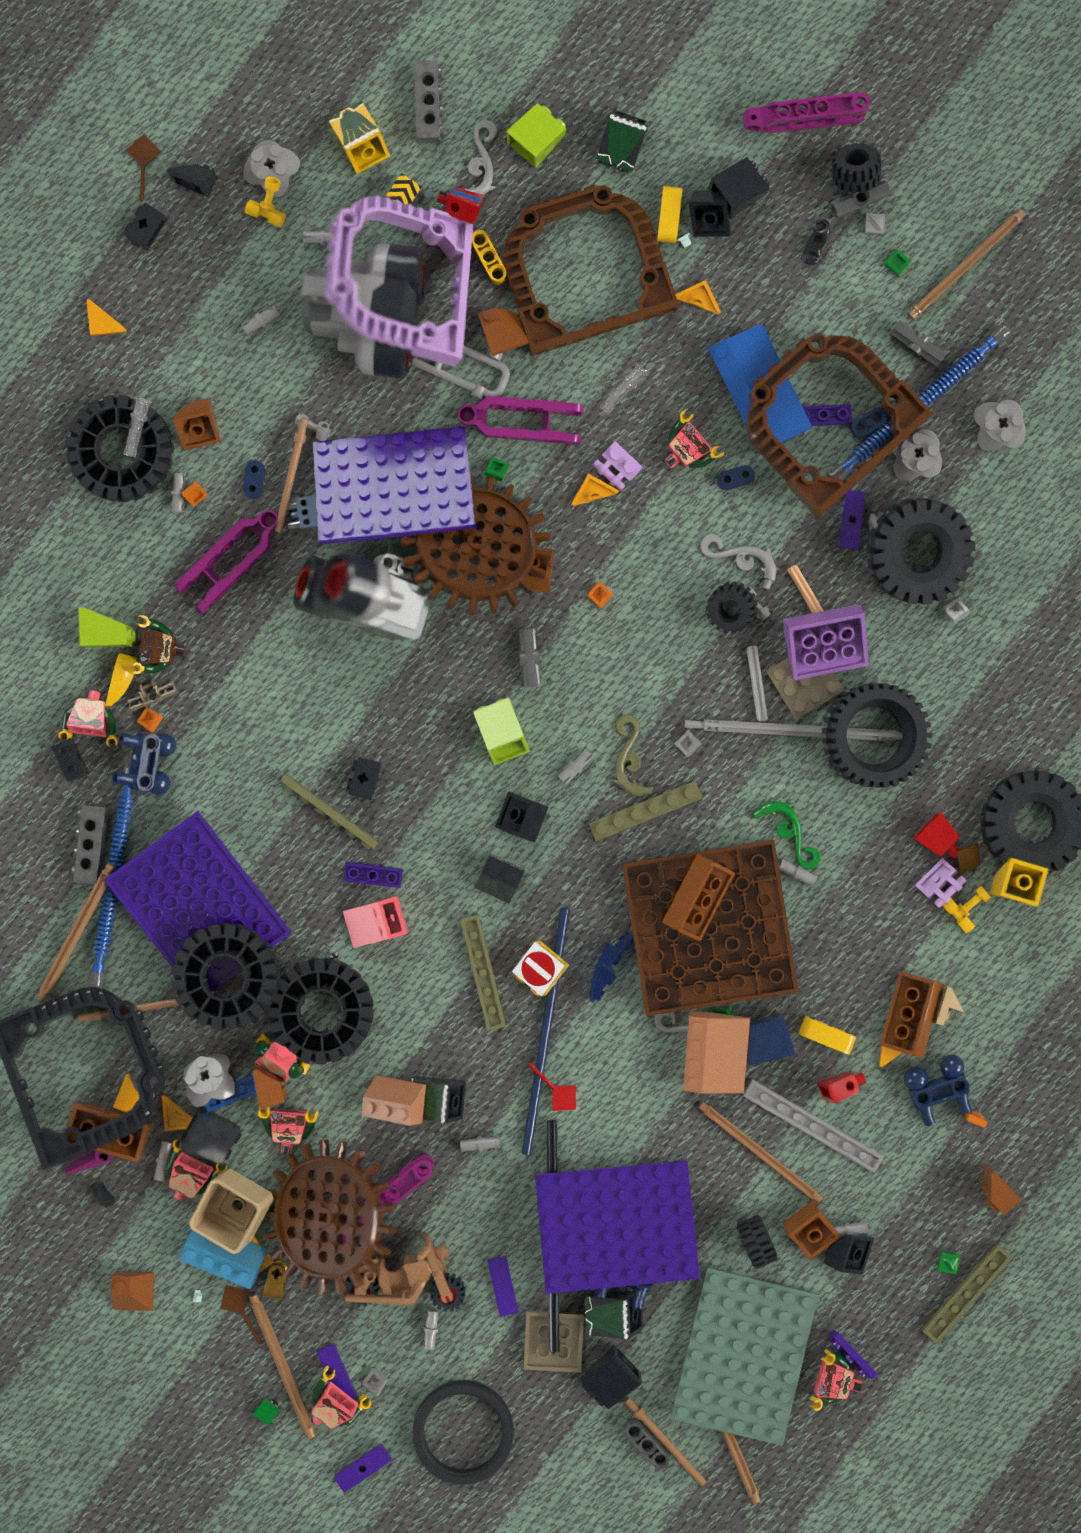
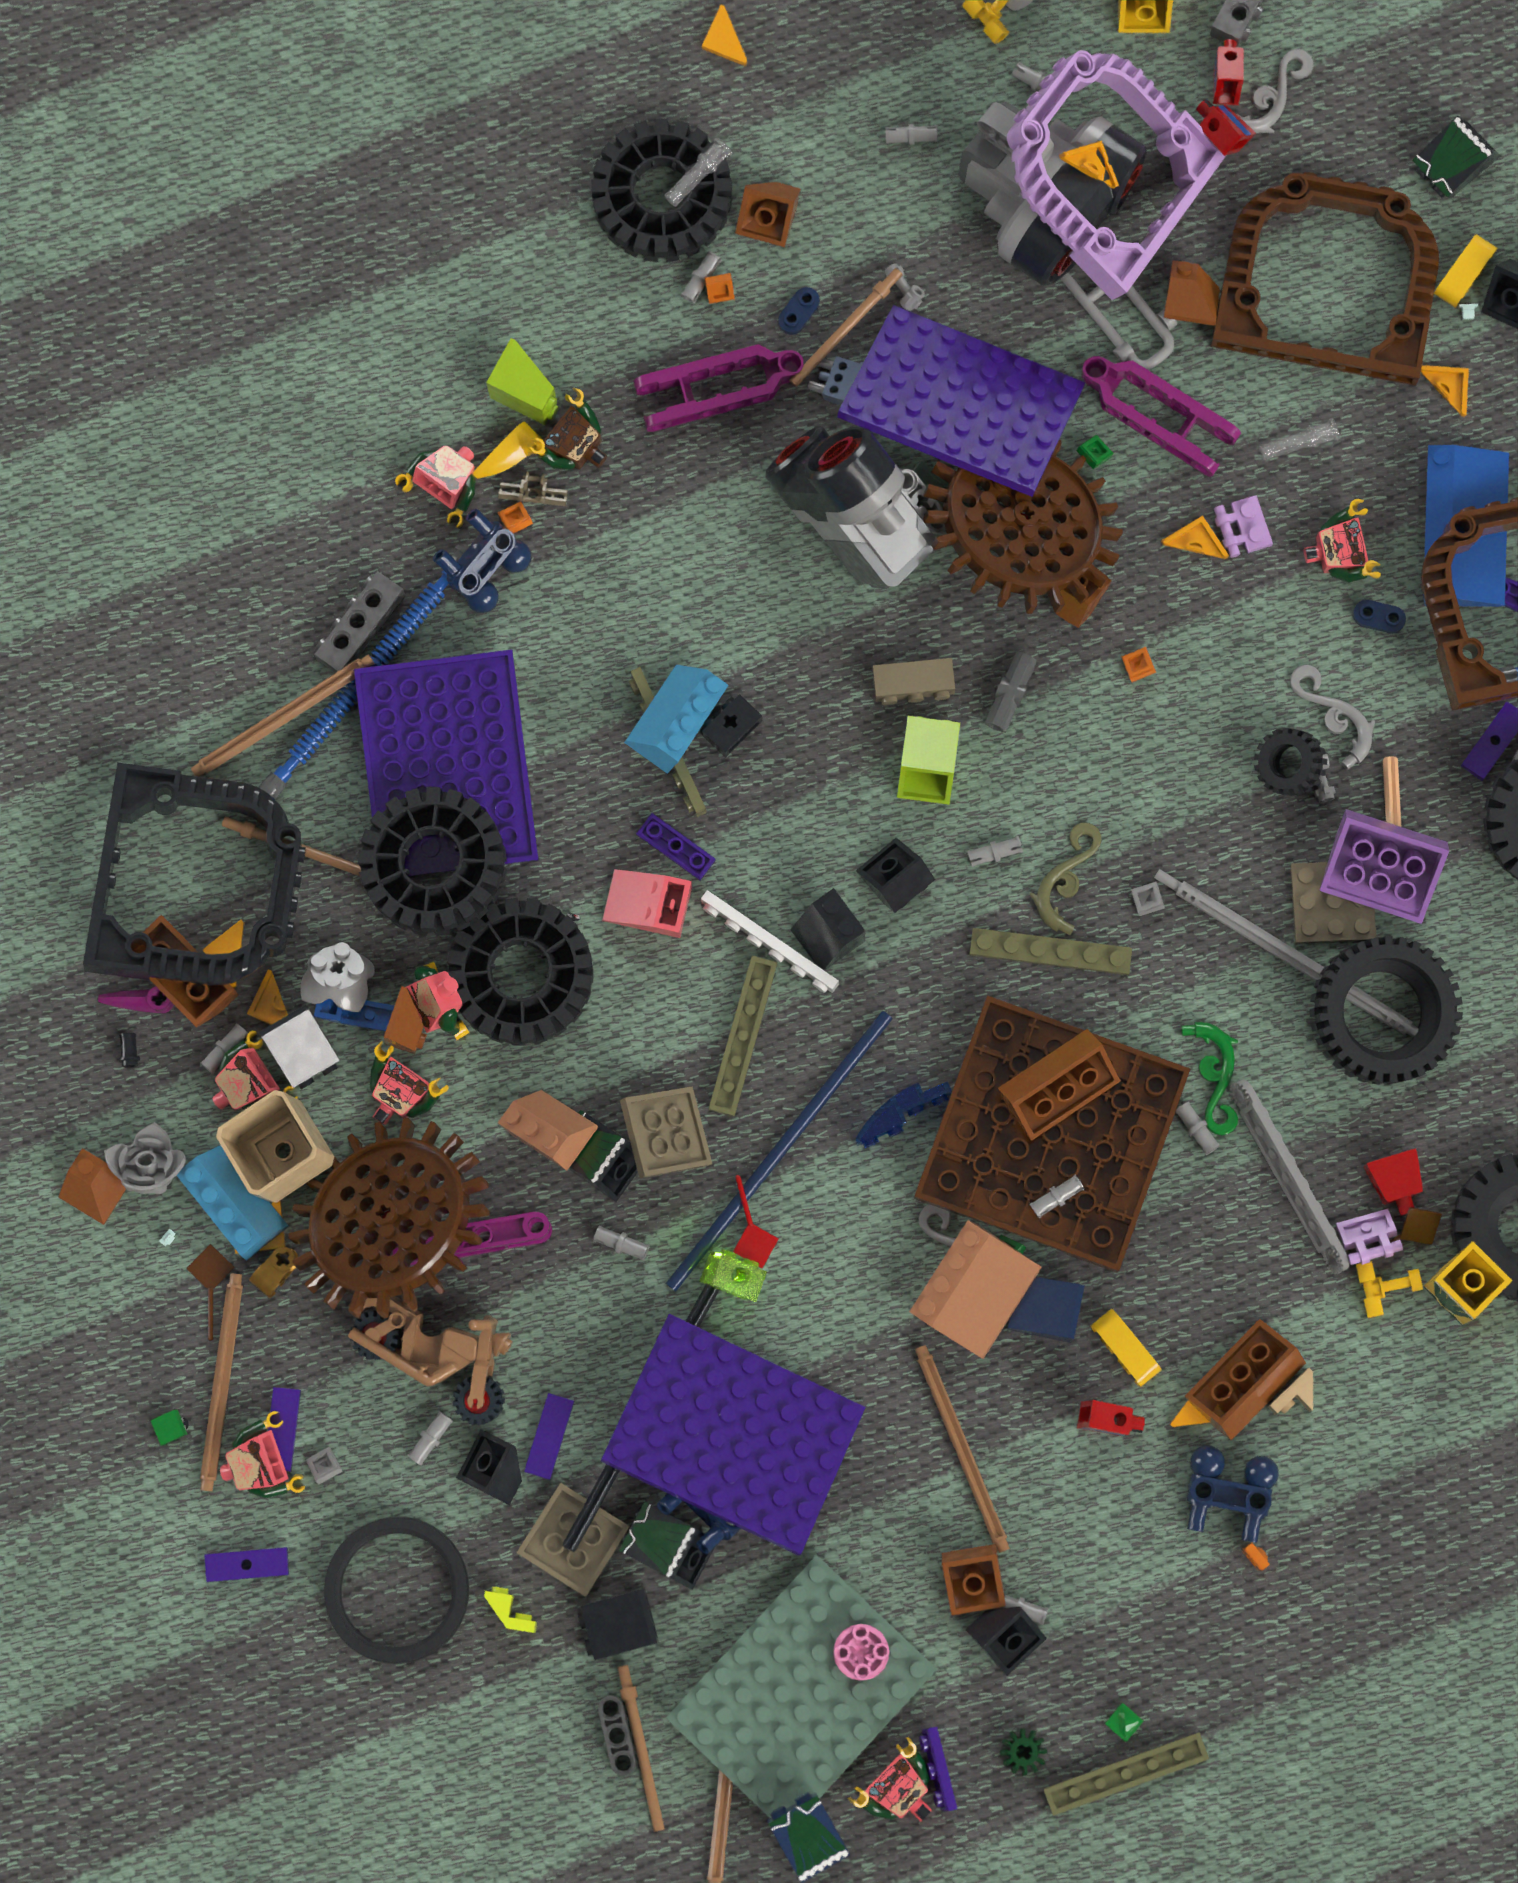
camera: 30 degrees right, 10 degrees down
(70, 760) = (394, 513): black brick -> none
(144, 1268) = (147, 1163): none -> light grey brick
(326, 795) = (675, 715): none -> dark azure slope
(388, 282) = (1087, 161): none -> light orange tile
(405, 191) = (1167, 78): piece -> none
(444, 164) = (1228, 67): none -> red torso
(464, 685) = (914, 681): none -> dark tan brick
(469, 1062) = (666, 1132): none -> dark tan plate
(474, 906) = (778, 949): none -> white plate
(479, 1327) = (492, 1467): none -> black slope
(485, 249) = (1226, 195): yellow beam -> none
(531, 1405) = (502, 1605): none -> neon yellow slope
(536, 134) = (1355, 96): lime slope -> none
(540, 968) = (815, 1067): piece -> none
(572, 1127) = (719, 1271): none -> clear neon green brick
(735, 968) = (1057, 1196): none -> light grey pin
(757, 685) = (1272, 873): light grey axle -> none
(757, 1241) = (897, 1551): black tyre -> none
(768, 1313) = (861, 1652): none -> bright pink tile
(798, 1444) = (807, 1836): none -> slope
(813, 1125) = (1046, 1453): light grey tile -> none
(871, 872) = (1289, 1176): none -> light grey plate
(898, 1322) = (1021, 1761): none -> dark green gear
(998, 1193) = (1235, 1659): dark orange slope -> none

